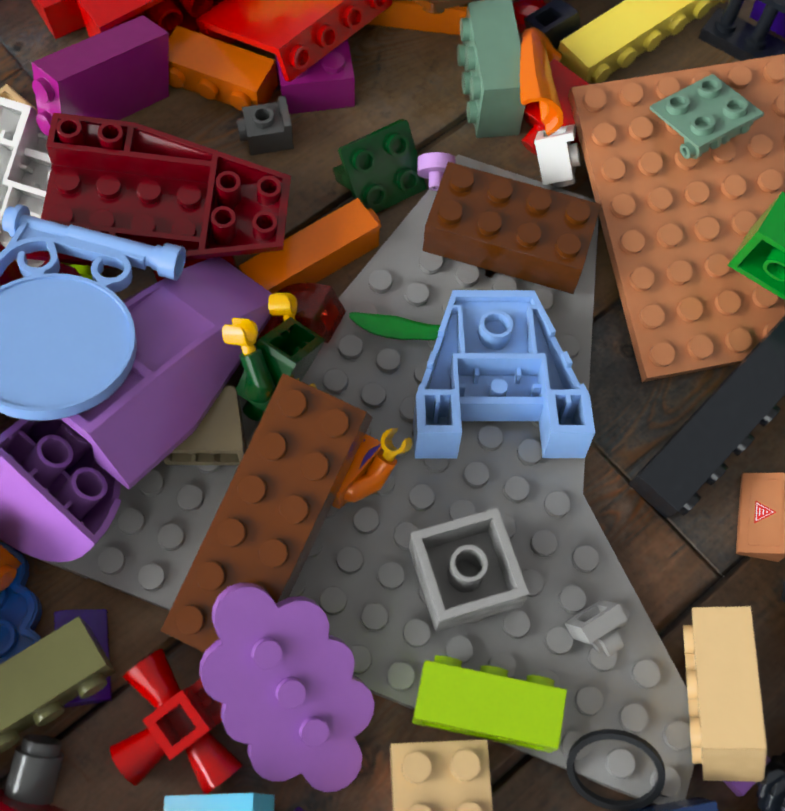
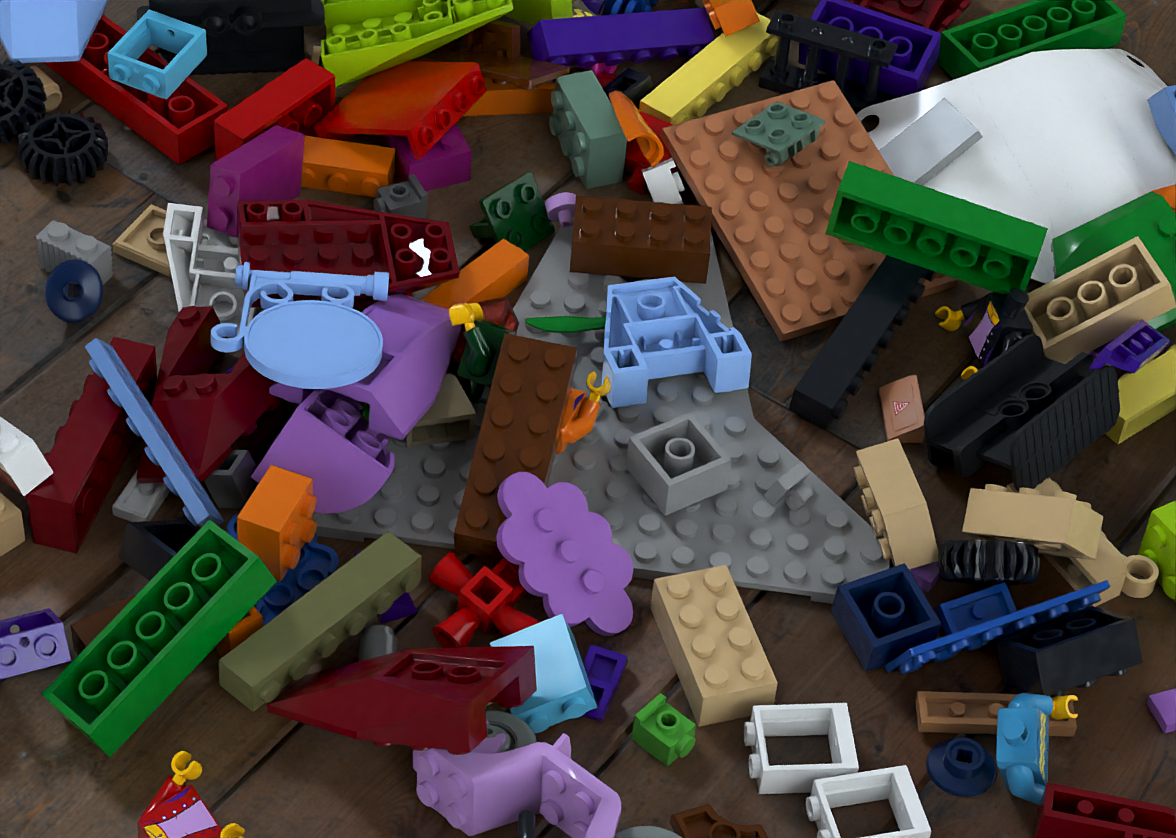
camera: 15 degrees left, 20 degrees down
(490, 704) = (743, 544): lime brick -> none
(614, 734) = (828, 540): black piece -> none

